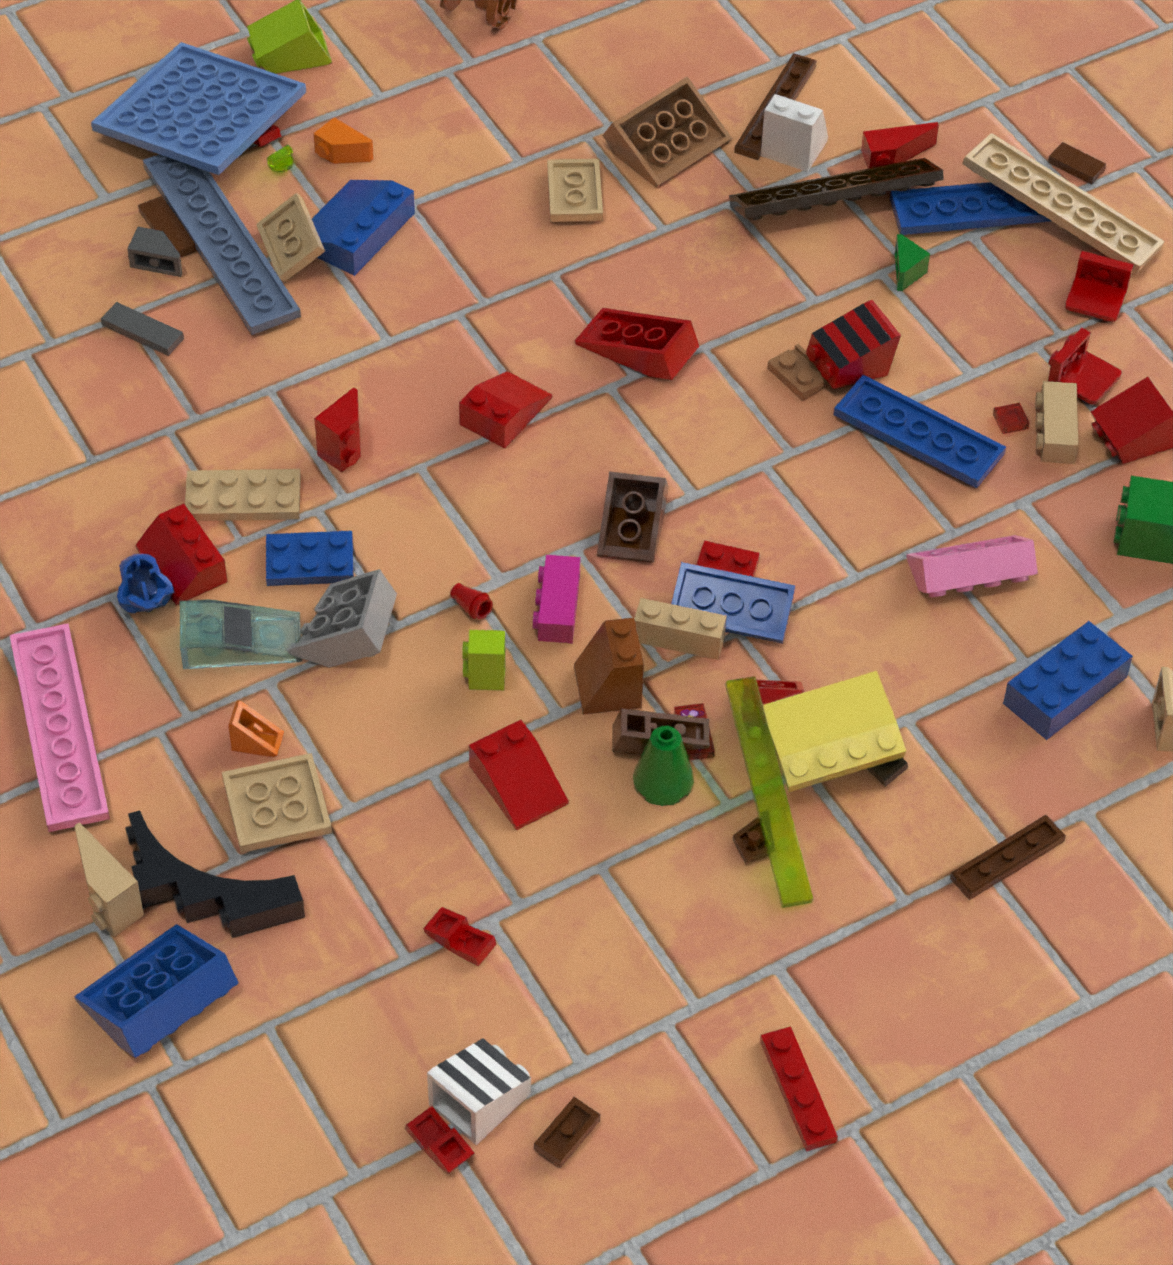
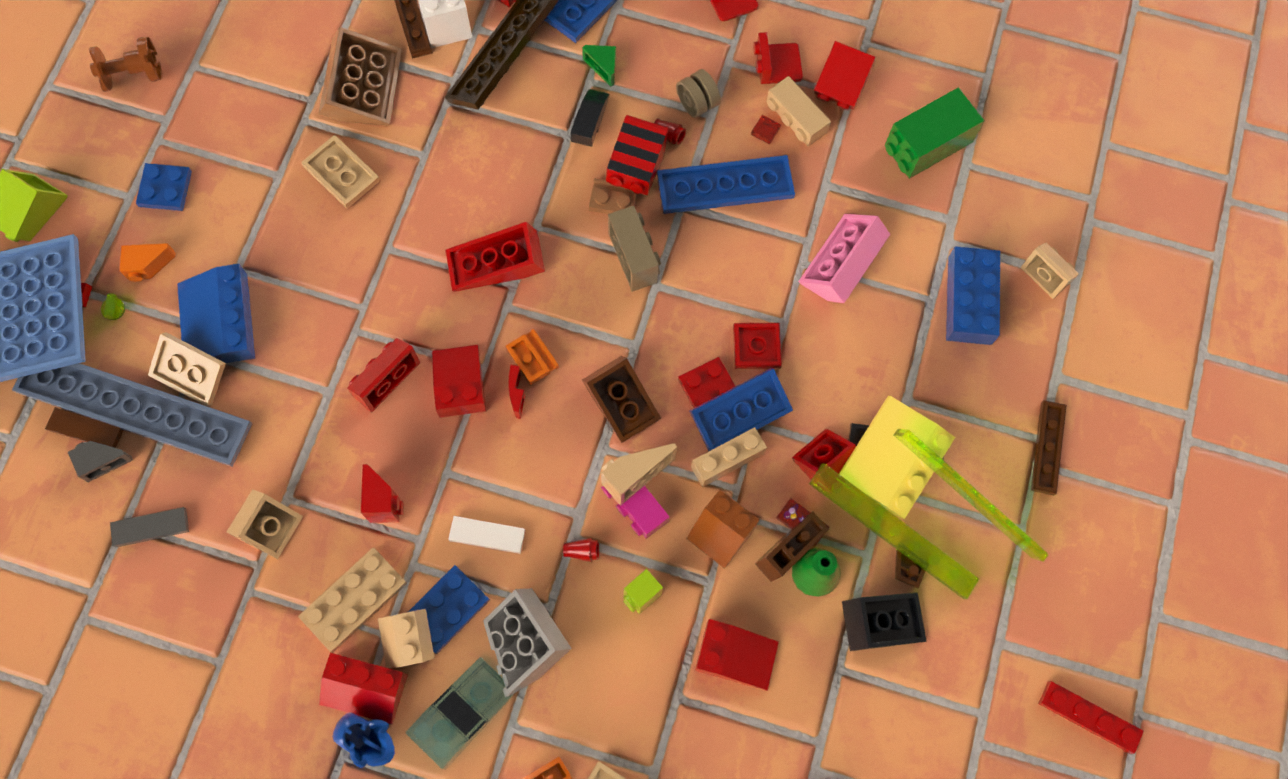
camera: 45 degrees left, 20 degrees up
(233, 389) = (264, 523): none -> tan slope
(257, 544) = (406, 639): none -> tan slope
(403, 532) = (487, 534): none -> white tile
(415, 106) = (163, 187): none -> blue plate
(446, 356) = (383, 374): none -> red slope
(549, 440) = (516, 395): none -> red slope
(580, 558) = (633, 471): none -> tan slope
(588, 433) = (532, 356): none -> orange plate
(682, 855) = (883, 621): none -> black slope
(769, 412) = (633, 248): none -> dark tan brick
(809, 571) = (757, 345): none -> red tile
(844, 294) = (589, 117): none -> black slope
(870, 806) = (970, 494): none -> clear neon green tile
(912, 356) = (676, 132): none -> red cone
(970, 340) = (698, 93): none -> dark tan wheel

